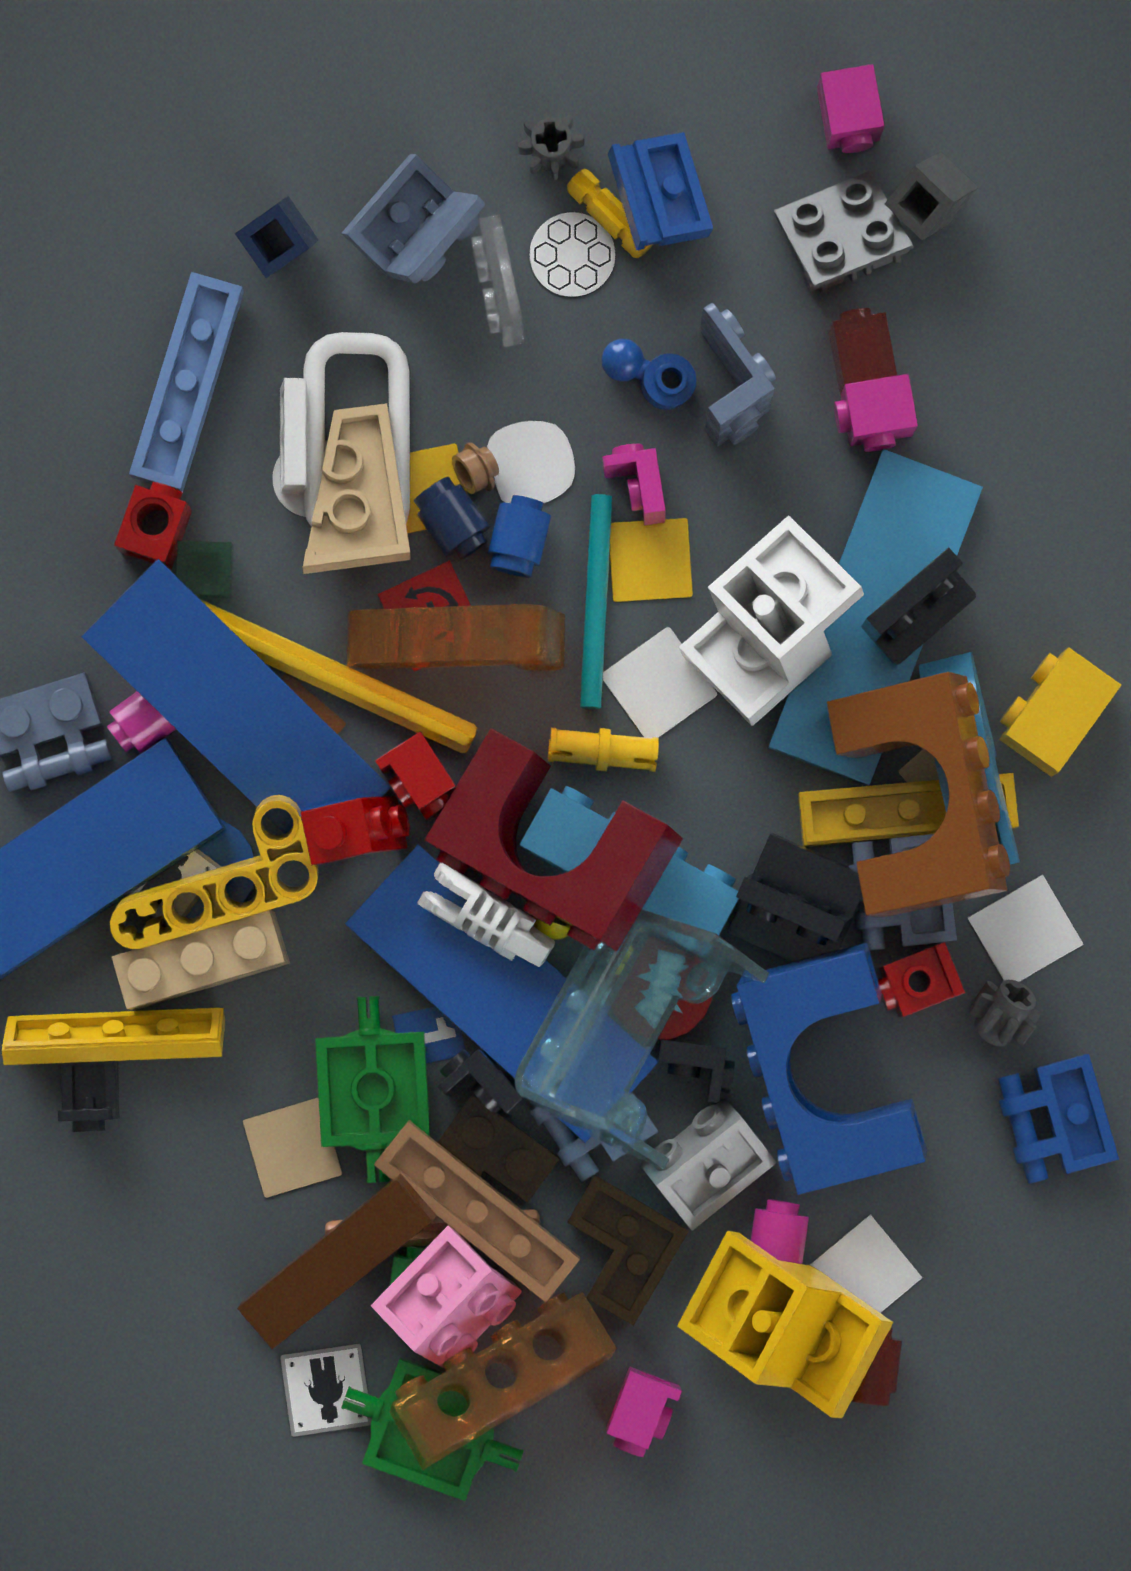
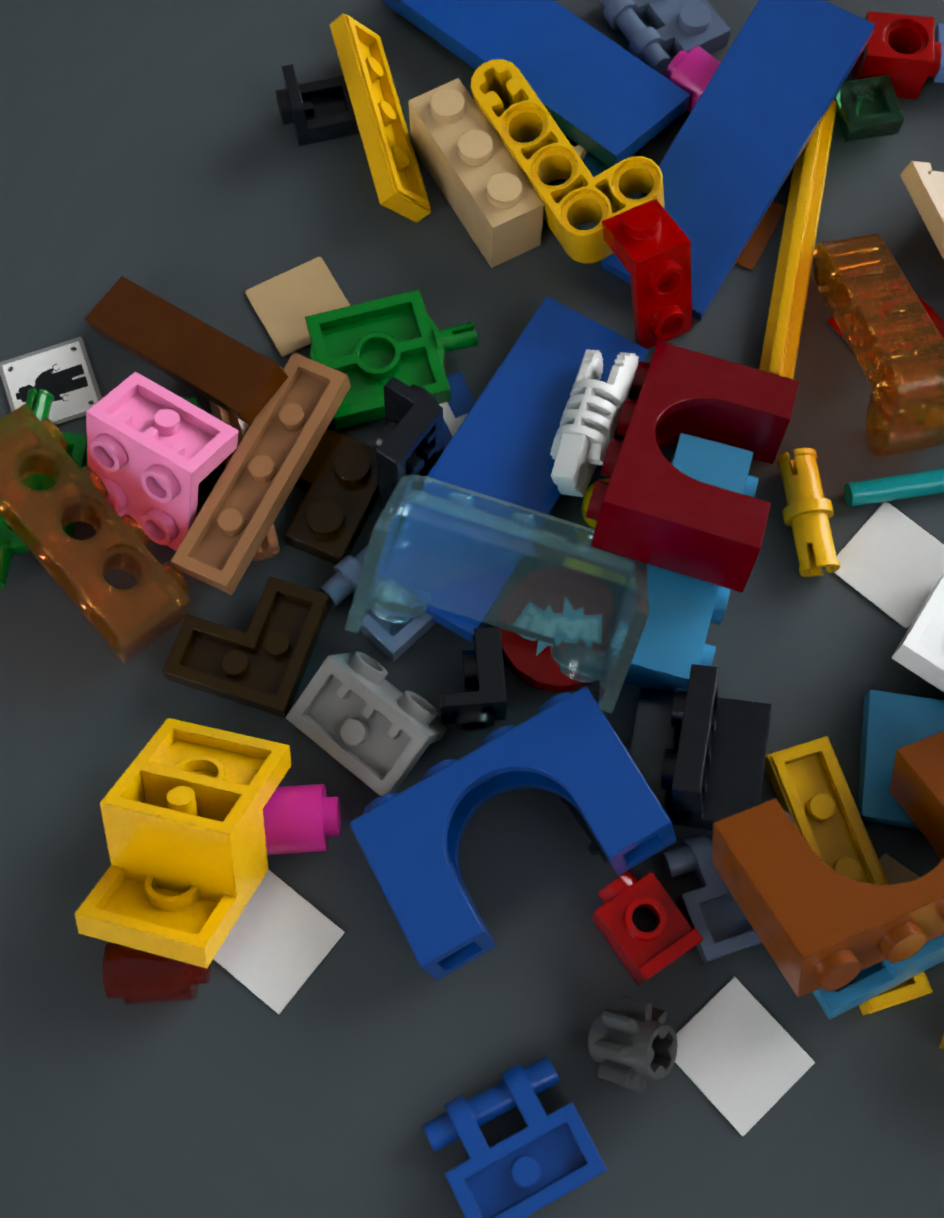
camera: 75 degrees right, 15 degrees down
(419, 776) = (729, 327): red brick -> none
(641, 1411) = (65, 701): dark pink brick -> none

